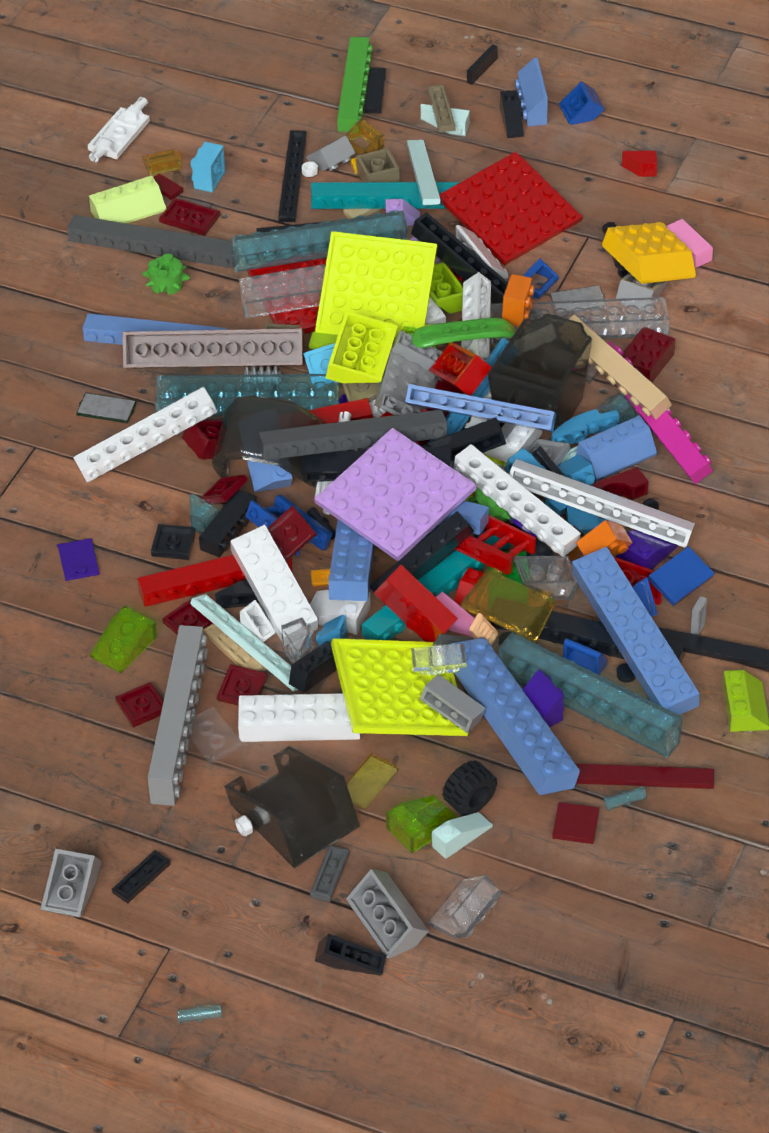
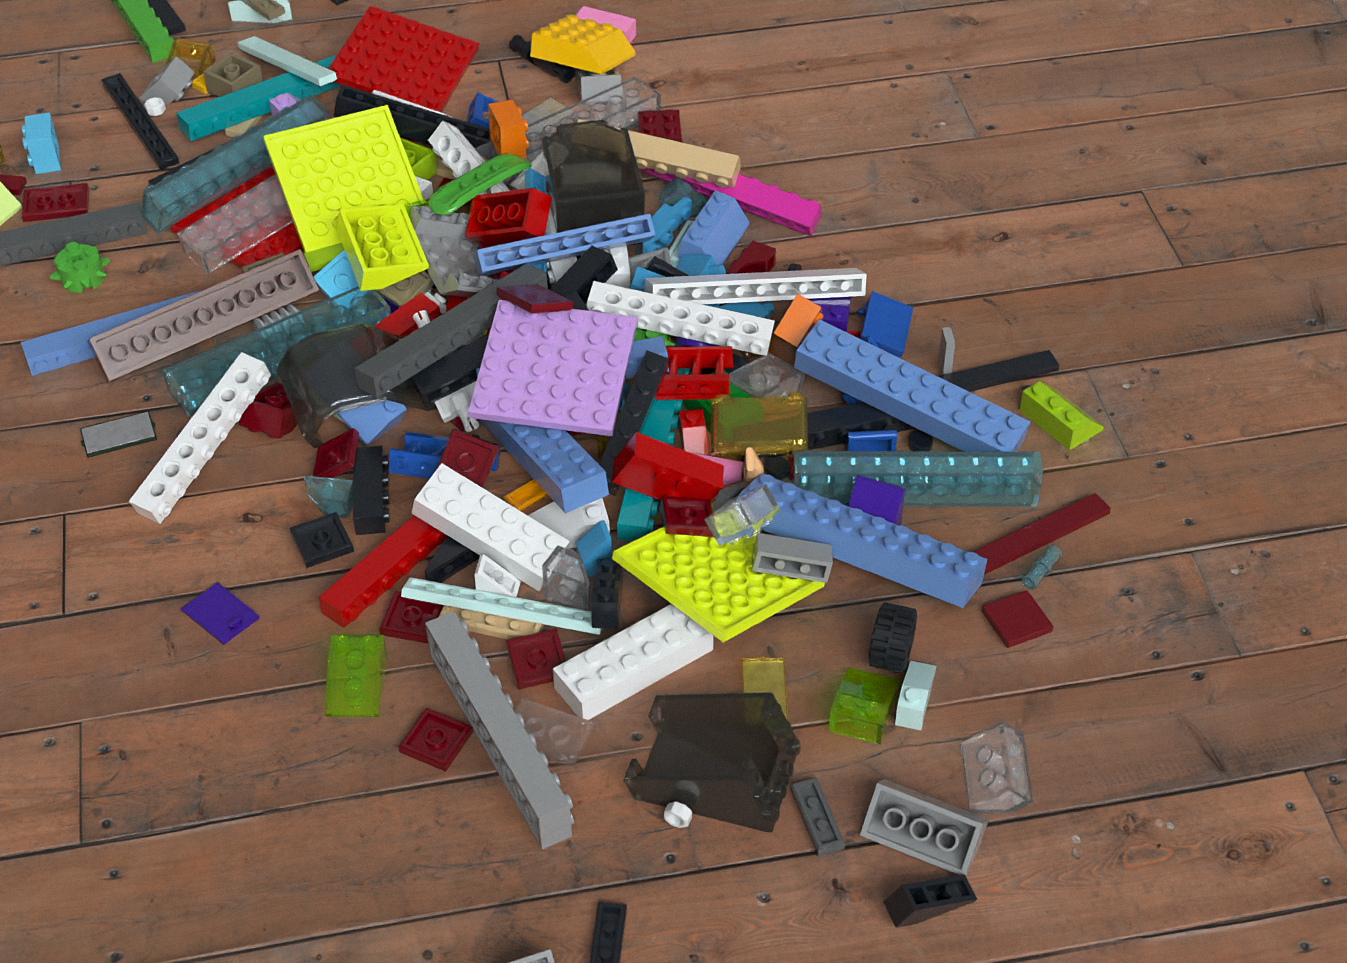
camera: 35 degrees left, 0 degrees up
(407, 637) = (686, 516): none -> dark red tile
(415, 438) = (534, 298): none -> tile

